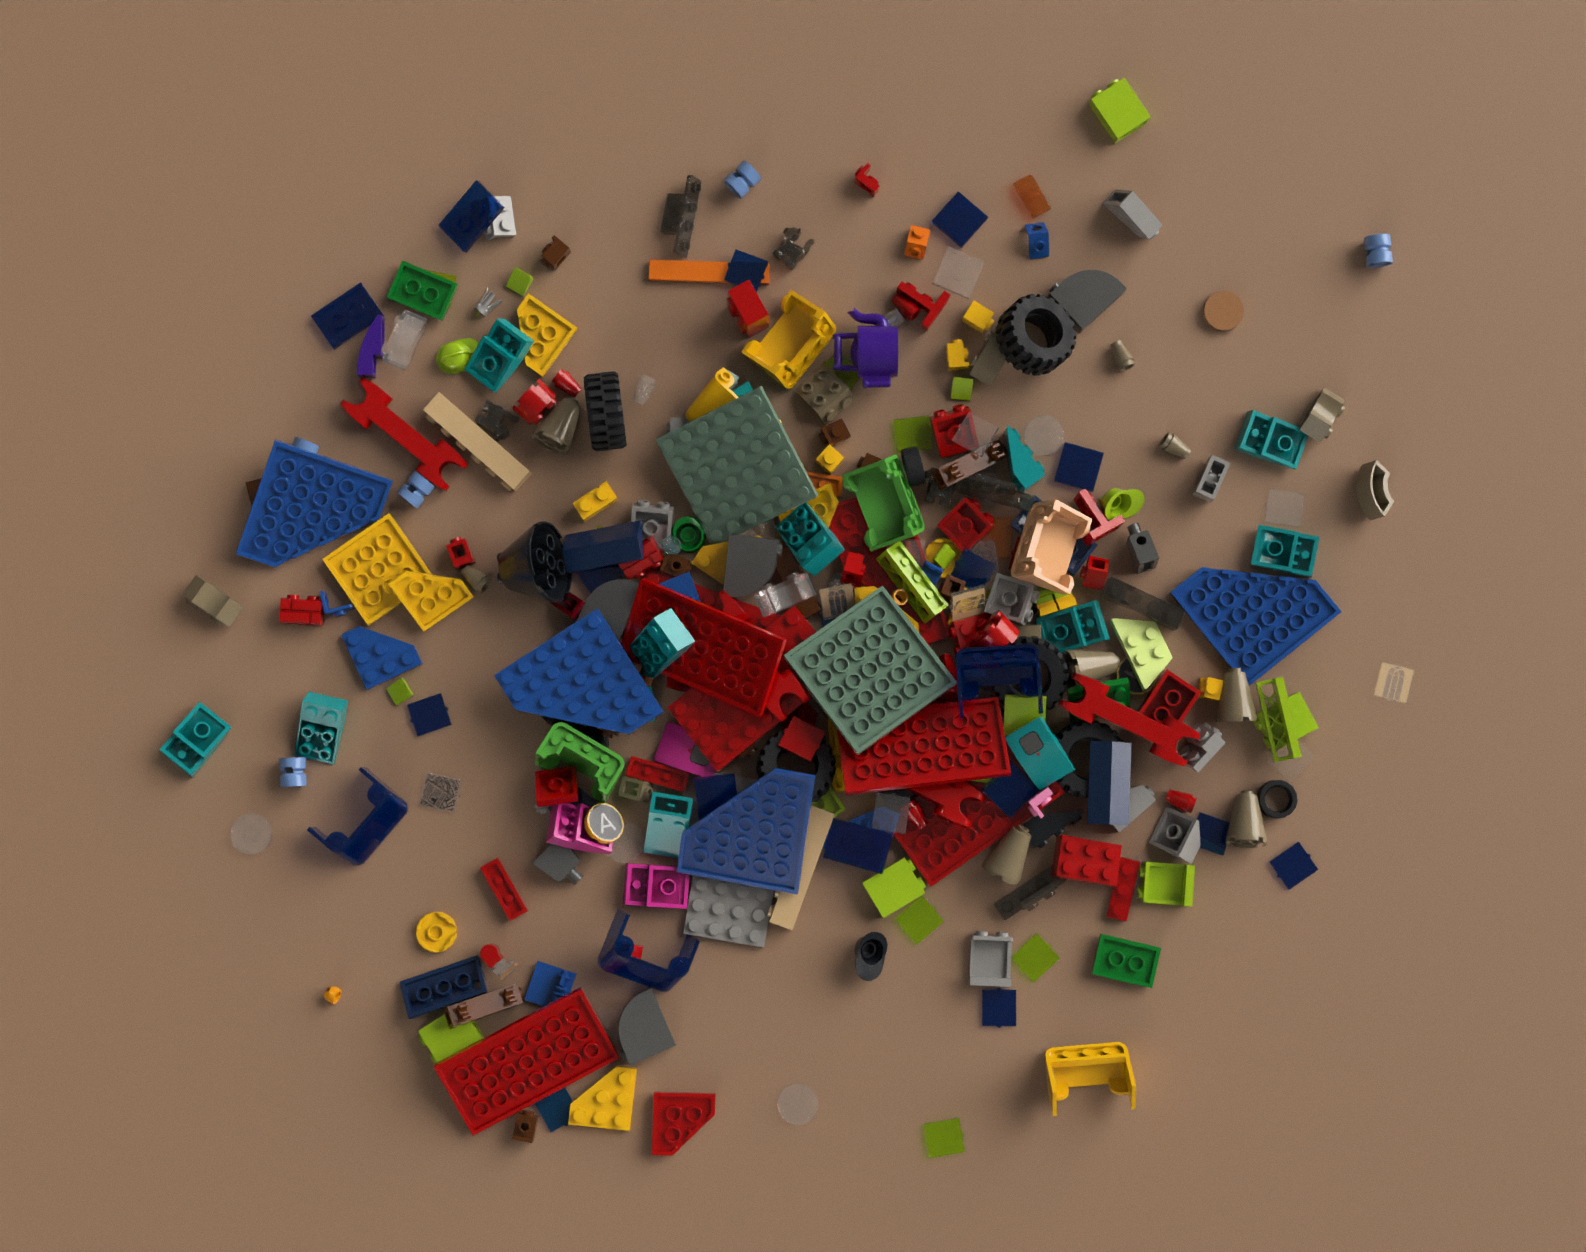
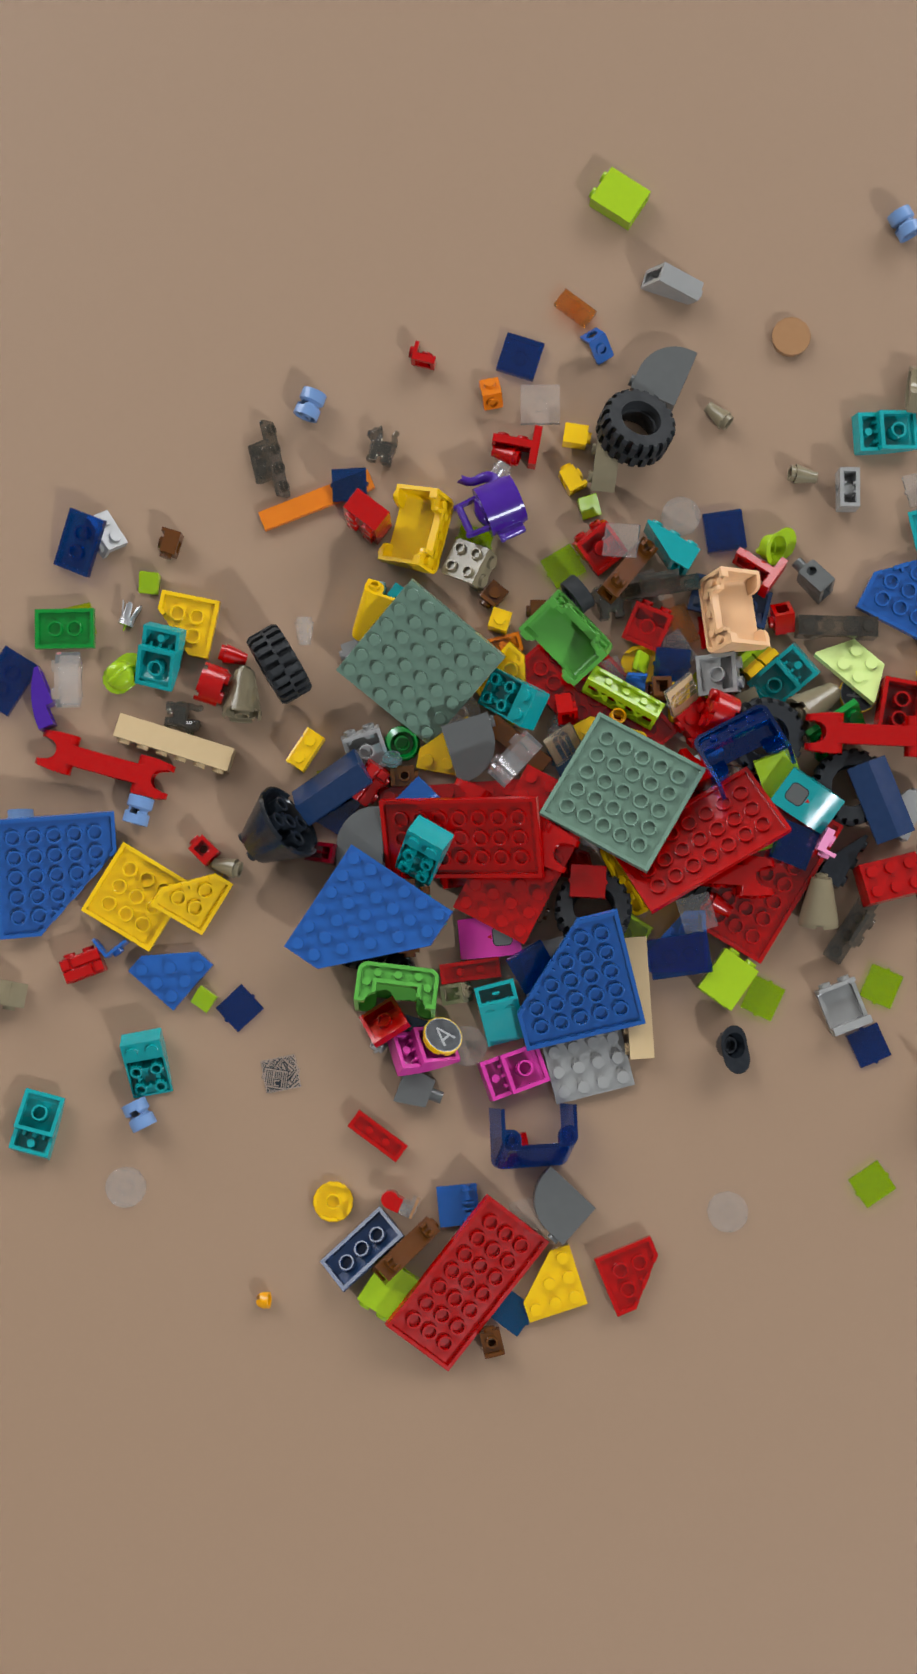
camera: 20 degrees left, 0 degrees up
(373, 830) = (236, 1132): clear blue windscreen -> none

